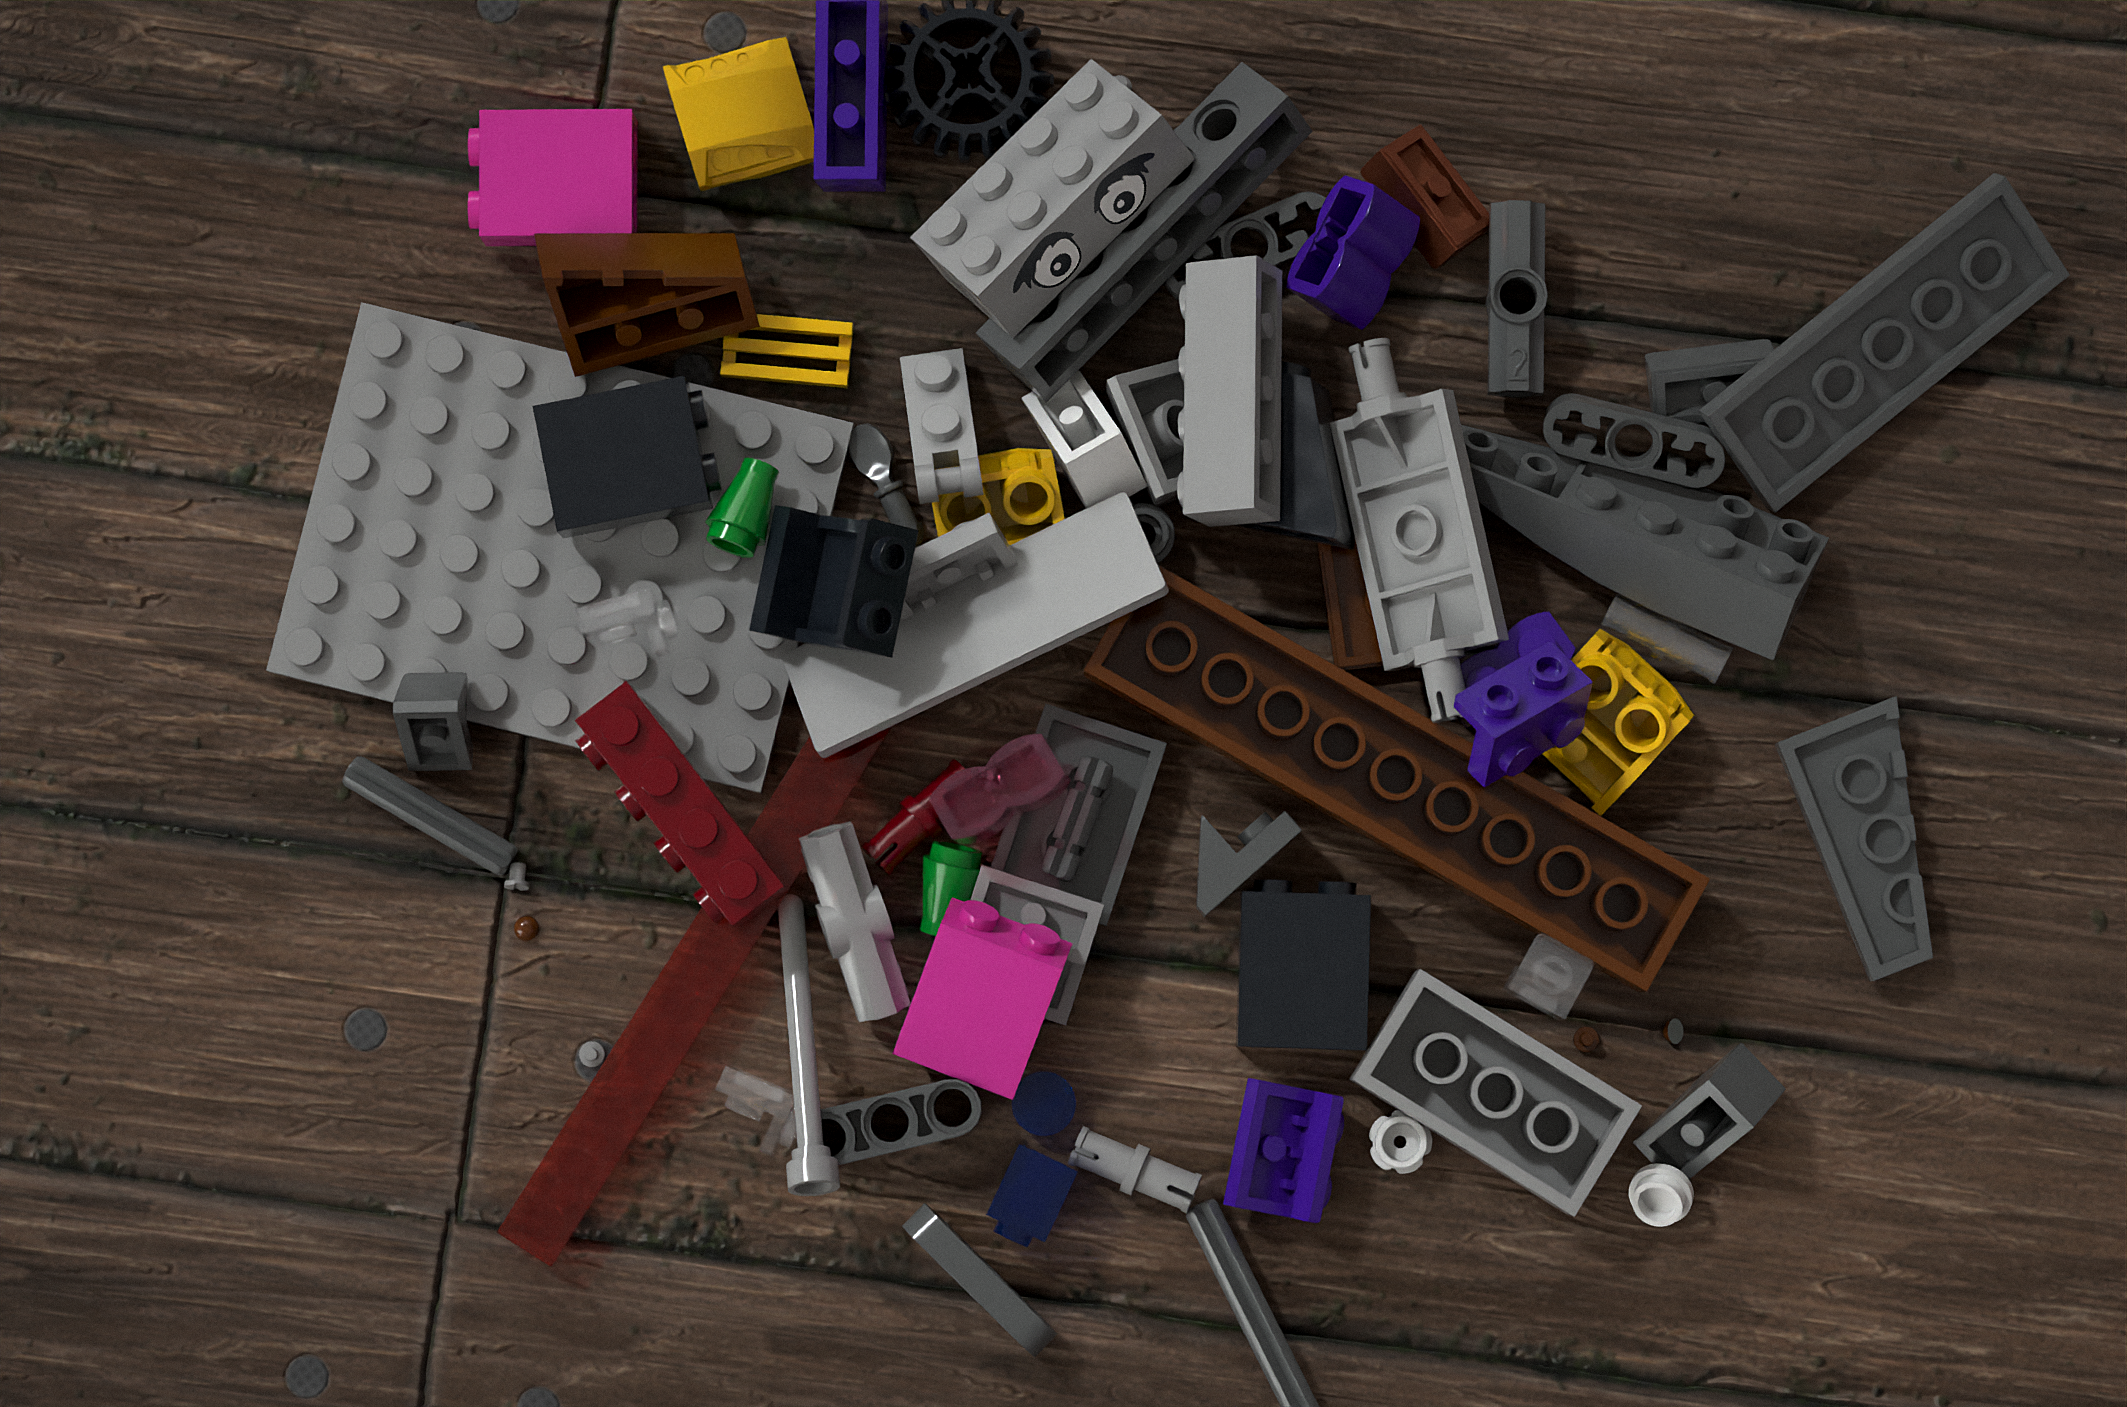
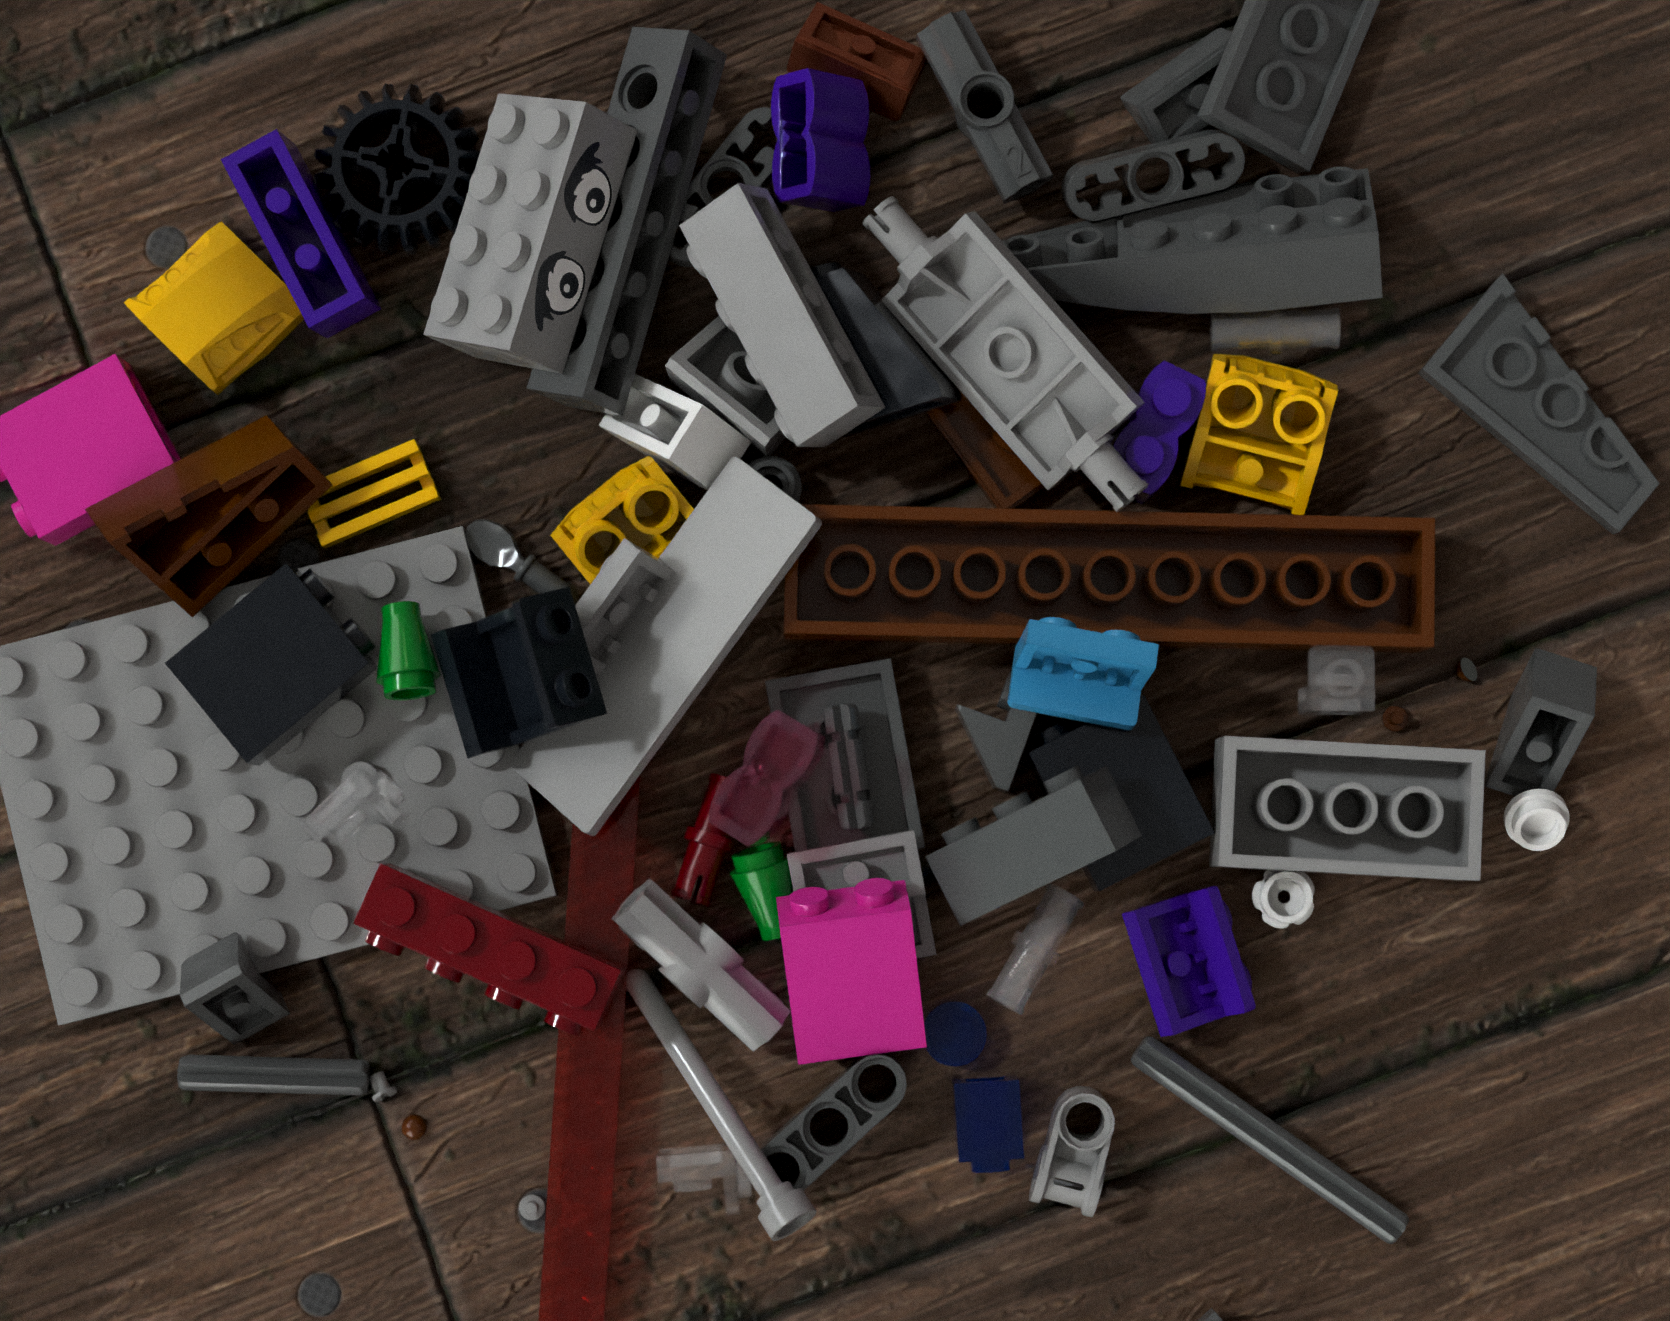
camera: 30 degrees left, 0 degrees up
(941, 425) = (540, 485): light grey plate -> none
(979, 1280) = (983, 1221): dark grey beam -> none
(1089, 1266) = (1073, 1155): none -> light grey piece
(1135, 1169) = (1066, 1048): light grey pin -> none
(1155, 1068) = (1035, 949): none -> clear pin
(1200, 970) = (1032, 842): none -> dark grey brick
(1323, 845) = (1080, 672): none -> dark azure bracket
(1524, 712) = (1193, 458): dark purple bracket -> none

